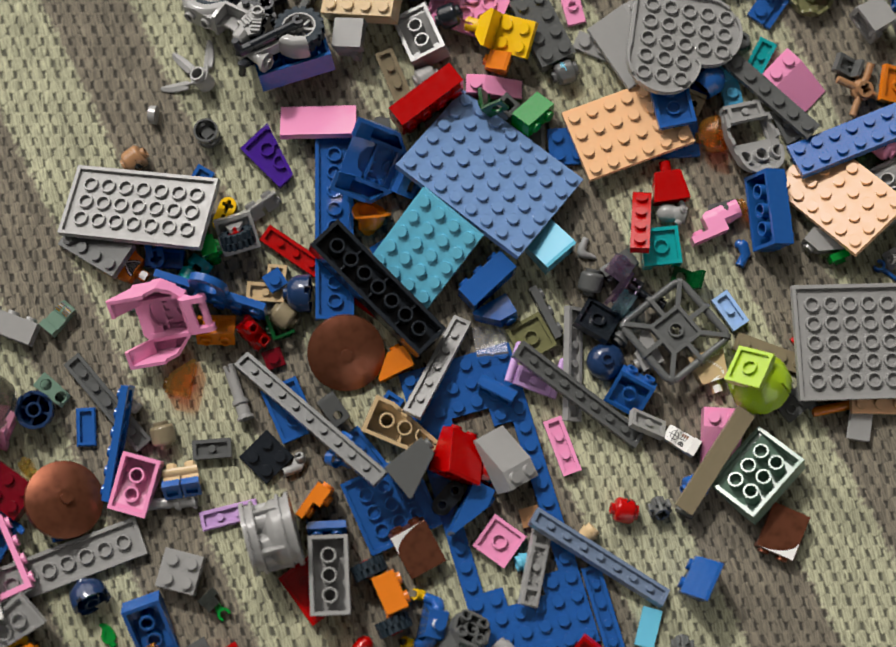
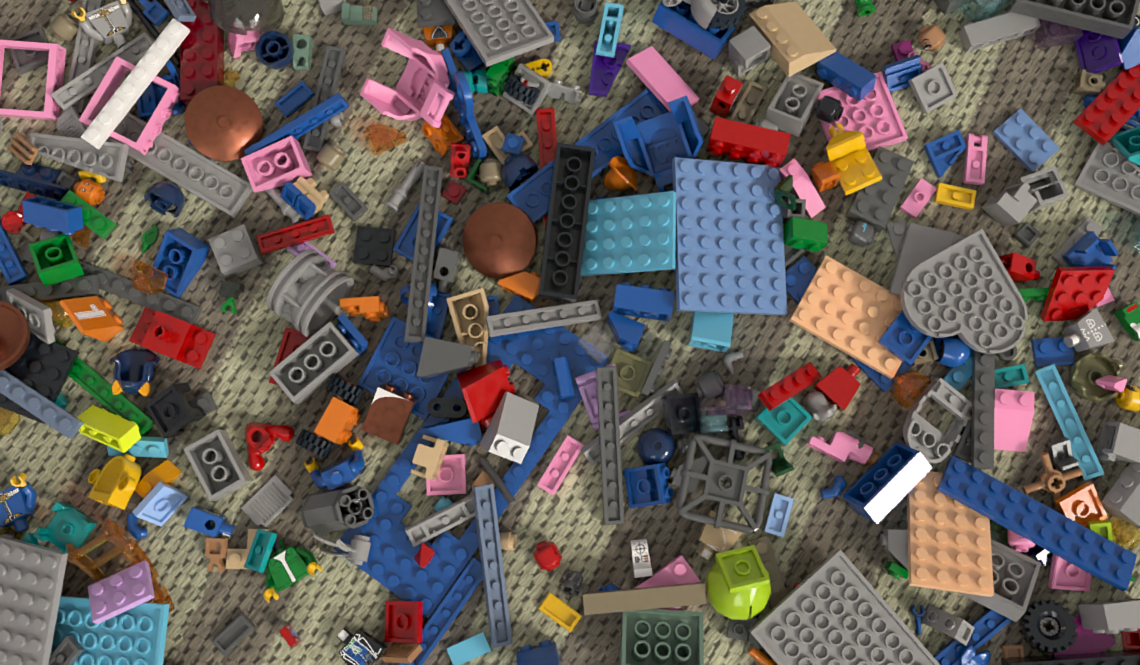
camera: 55 degrees right, 0 degrees up
(205, 512) = (295, 234): none -> red tile
(243, 130) = (610, 29): none -> medium azure slope
(372, 83) = (727, 95): none -> red torso
(479, 540) = (430, 457): none -> tan panel
(536, 503) = (497, 481): none -> dark grey bar
(550, 604) = (424, 555): none -> red slope
(647, 424) = (631, 519): light grey plate -> none
(674, 535) = (560, 612): none -> yellow tile
(828, 40) = (1069, 421): none -> medium azure plate

